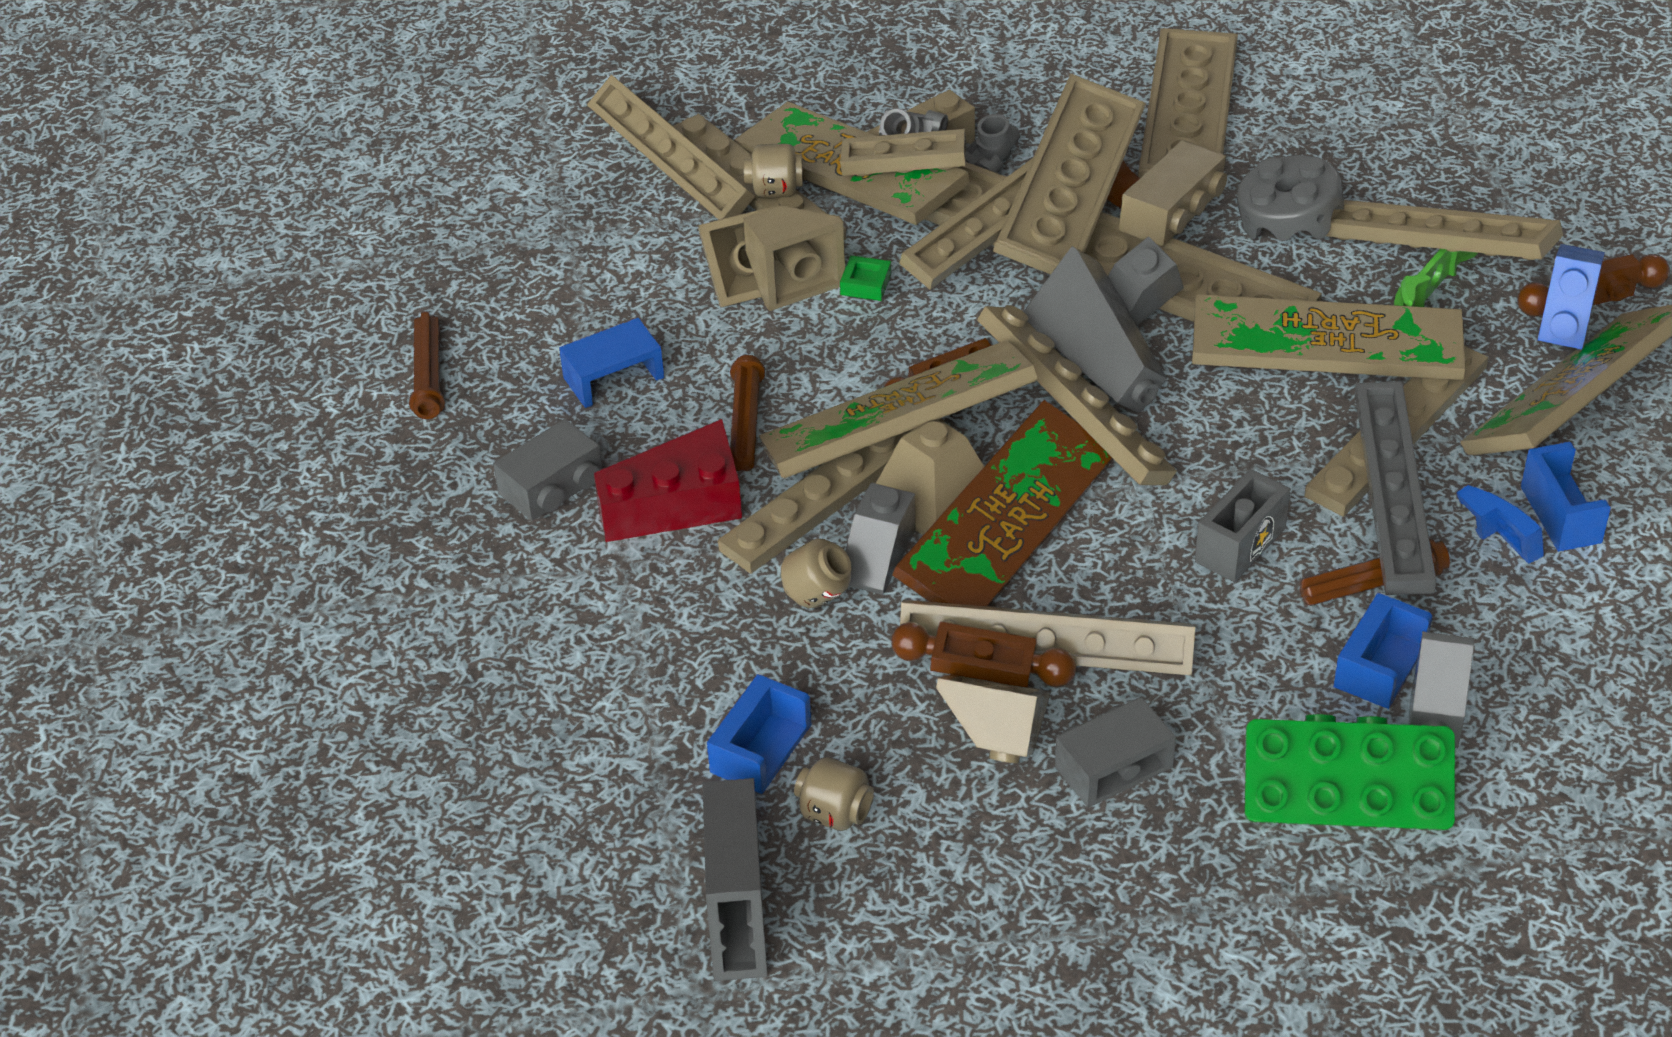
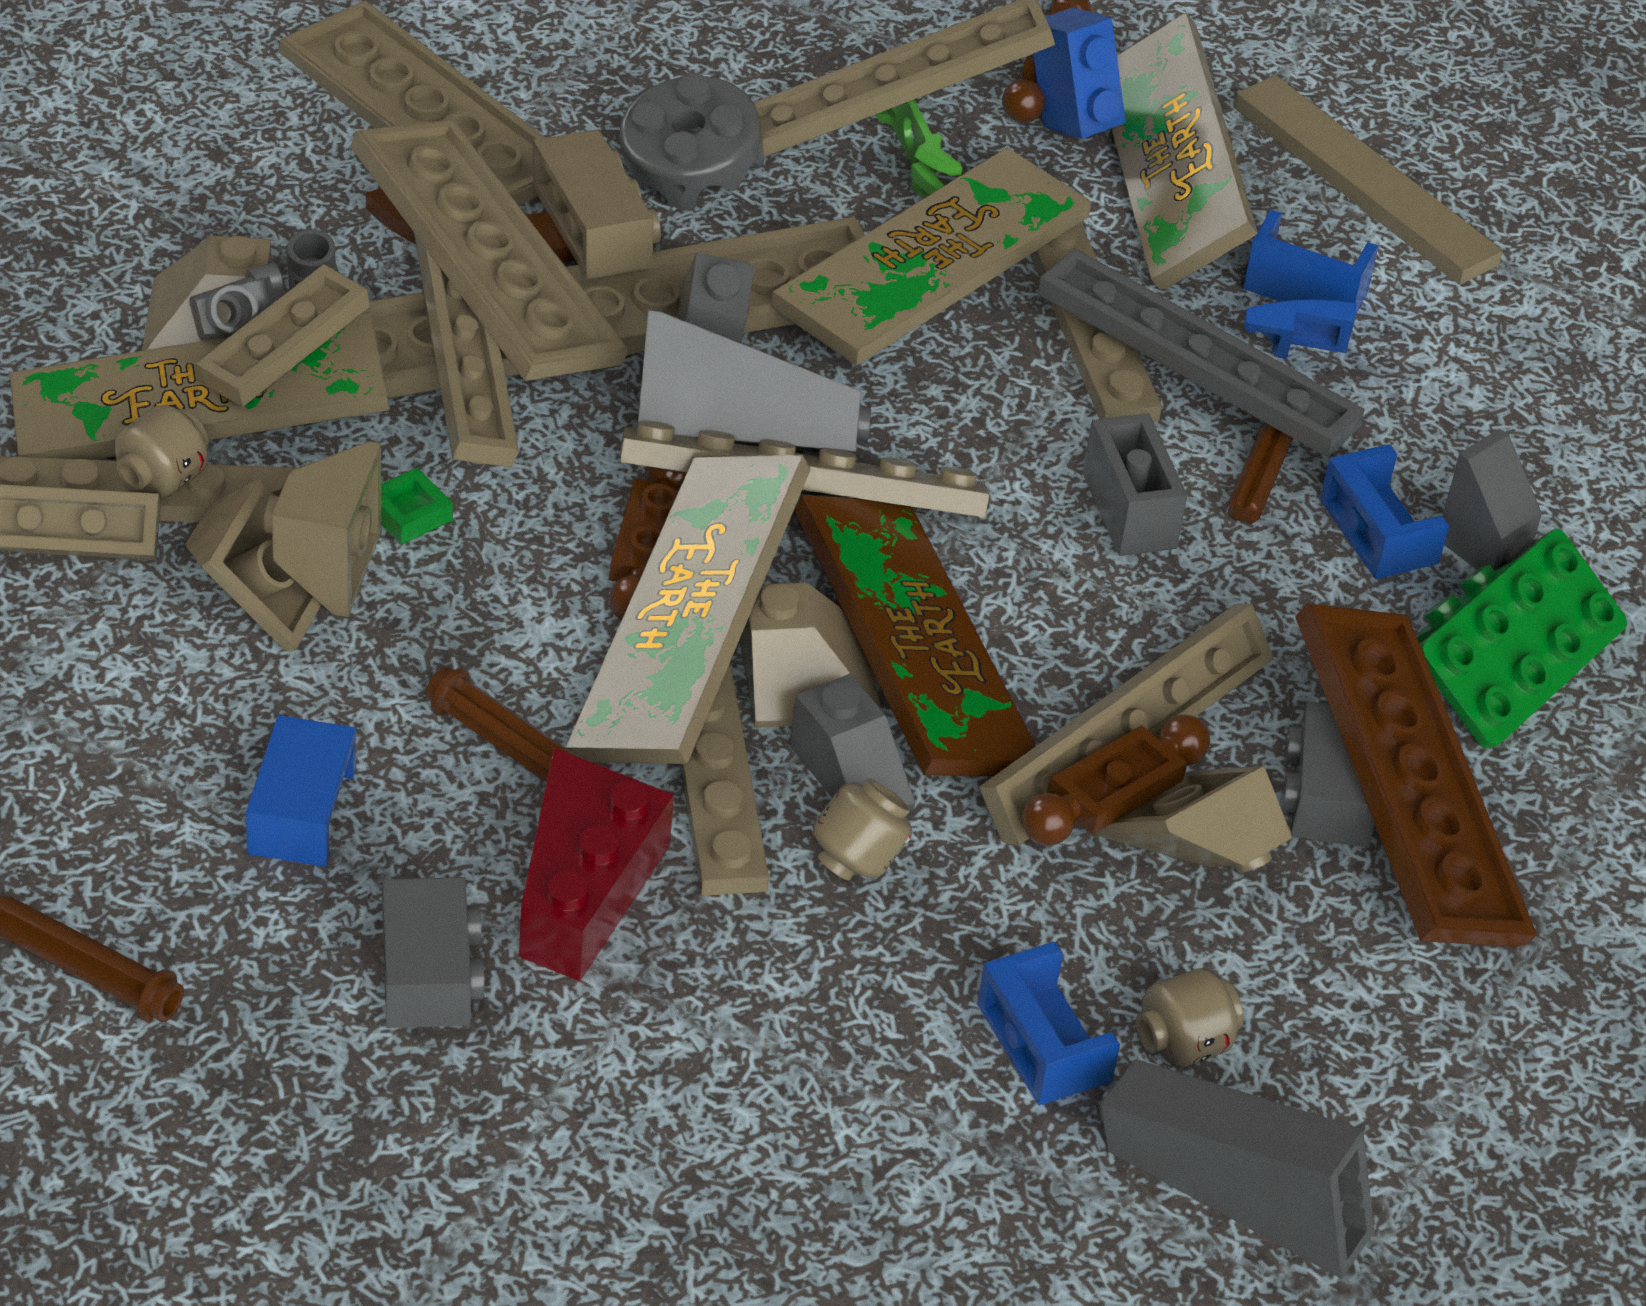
camera: 60 degrees left, 0 degrees up
(1137, 781) = (1415, 778): none -> reddish brown tile

